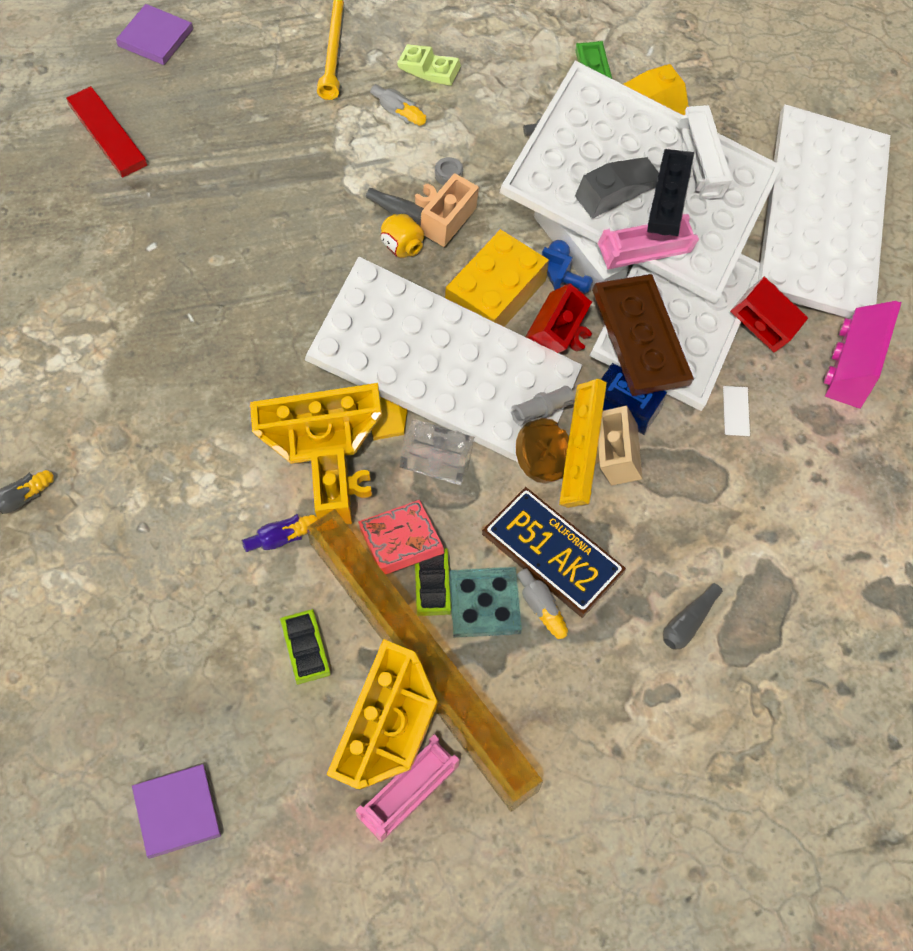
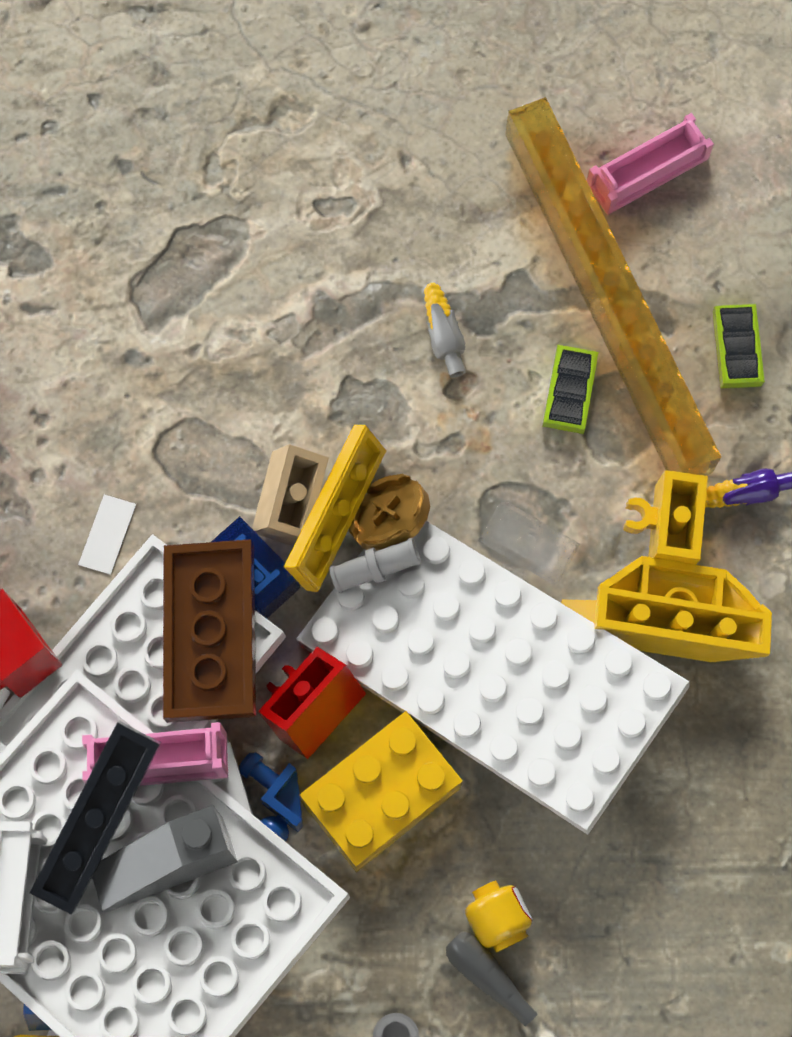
camera: 165 degrees left, 10 degrees up
(386, 720) = (666, 210): yellow wedge -> none
(401, 537) = (599, 446): coral tile -> none
(447, 209) = (422, 938): light nougat brick -> none
(484, 602) = (512, 350): clear light blue tile -> none
(554, 551) = (411, 394): tile -> none
(686, 623) = (277, 270): dark grey piece -> none

